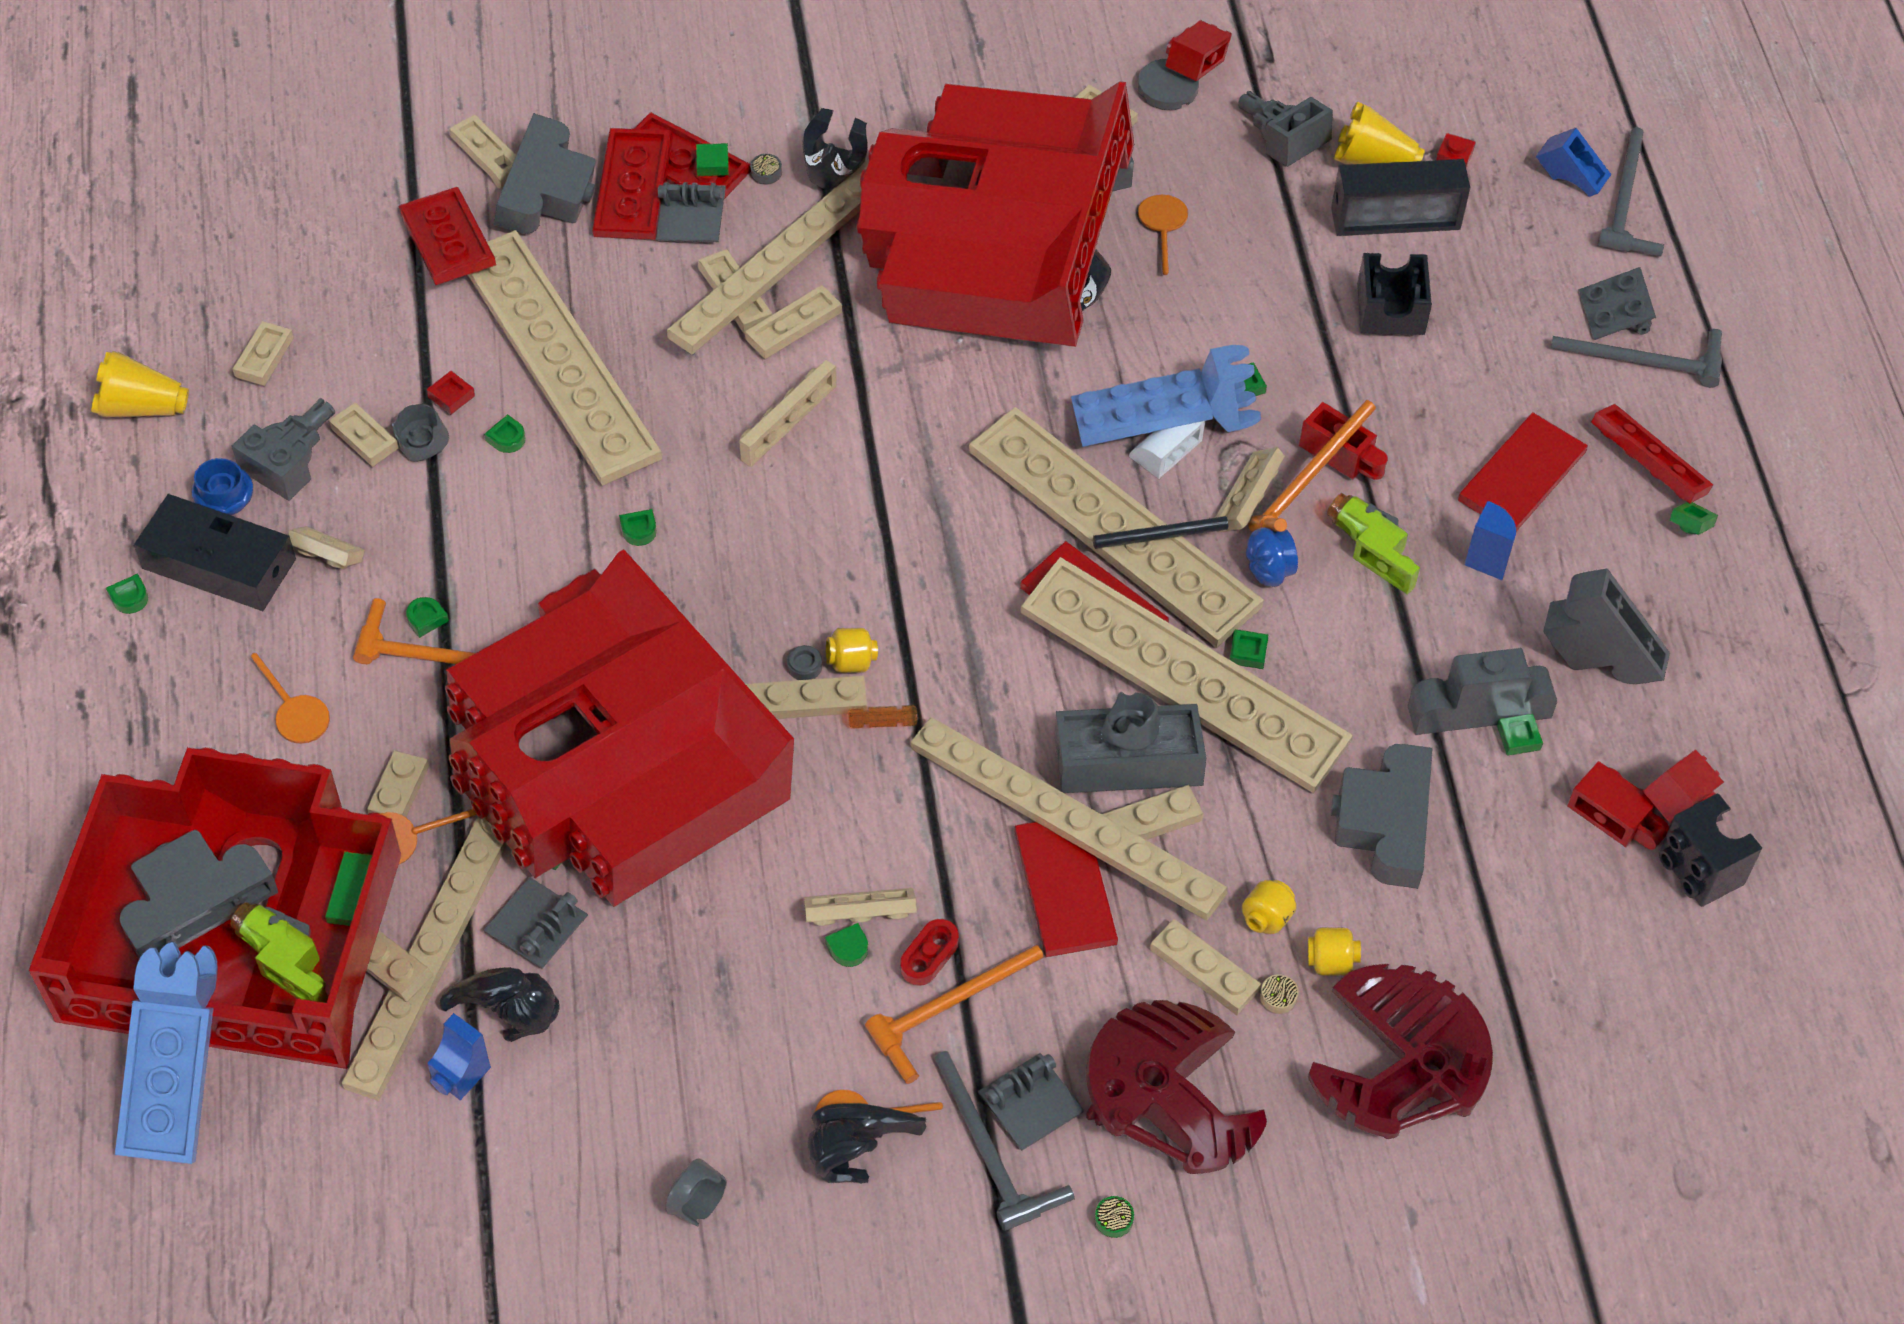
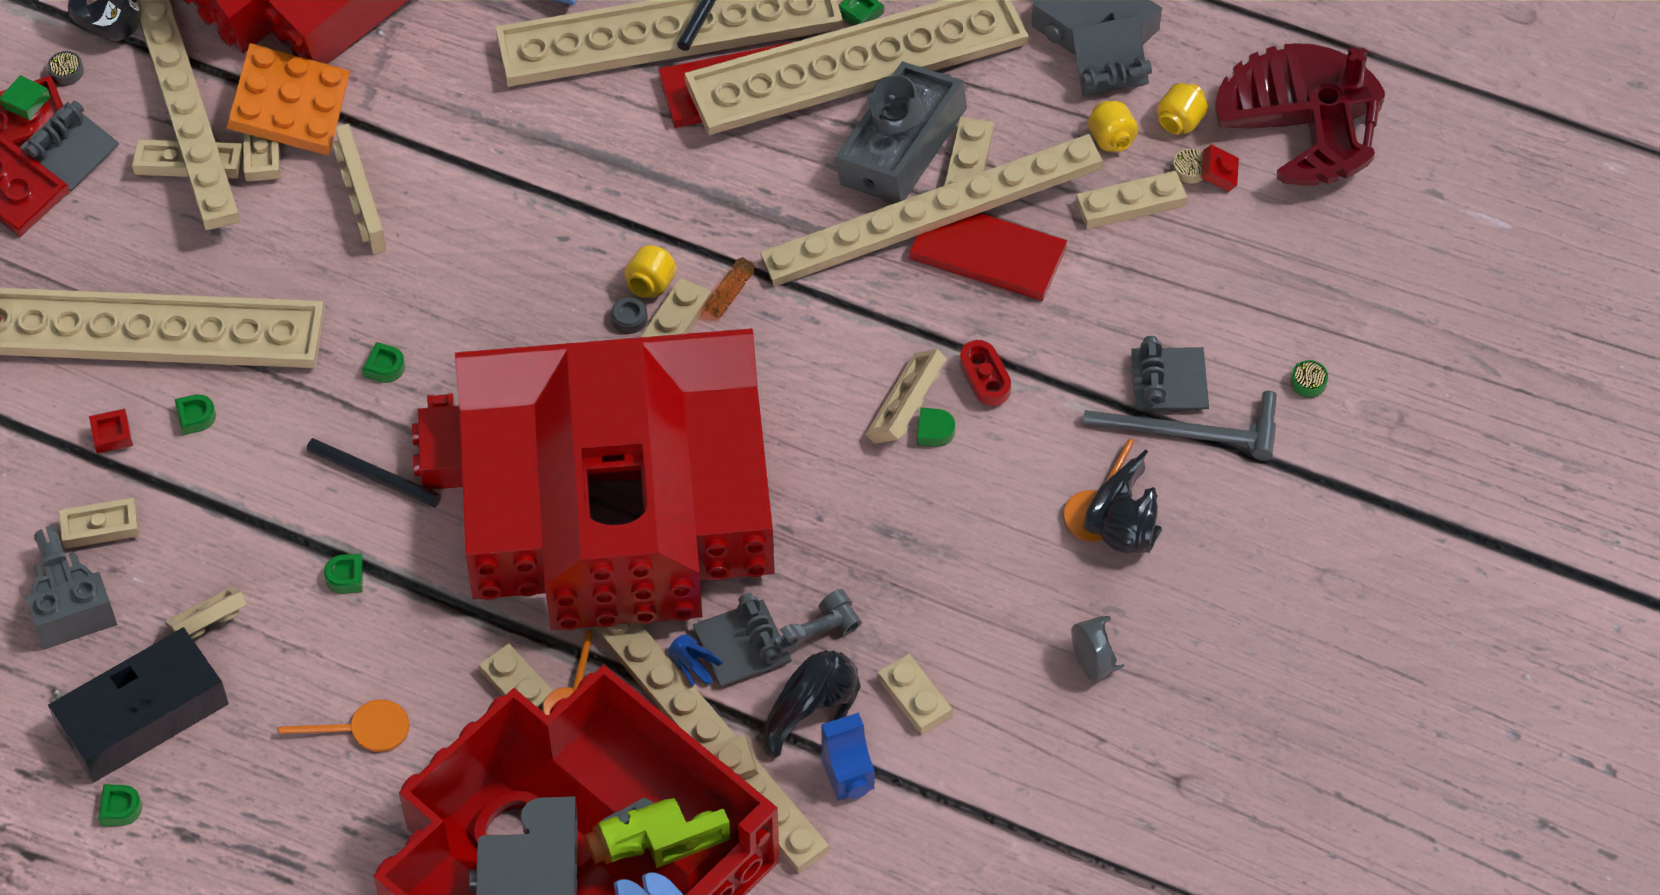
camera: 55 degrees left, 0 degrees up
(222, 486) = (65, 663): blue piece -> none
(347, 888) = (626, 749): green tile -> none
(372, 644) = (347, 631): orange bar -> none
(420, 432) = (139, 474): dark grey hair -> none
(496, 887) = (684, 654): none -> blue piece
(530, 571) = (374, 472): none -> black bar
(568, 1079) = (915, 694): none -> tan plate
(606, 977) = (837, 614): none -> dark grey brick
(835, 316) = (288, 99): none -> orange plate
(889, 1032) = (1037, 441): orange bar -> none
(1163, 1047) = (1208, 285): dark red piece -> none
(1290, 1017) = (1220, 168): none -> red plate
(1340, 860) = (1110, 55): none -> dark grey hinge

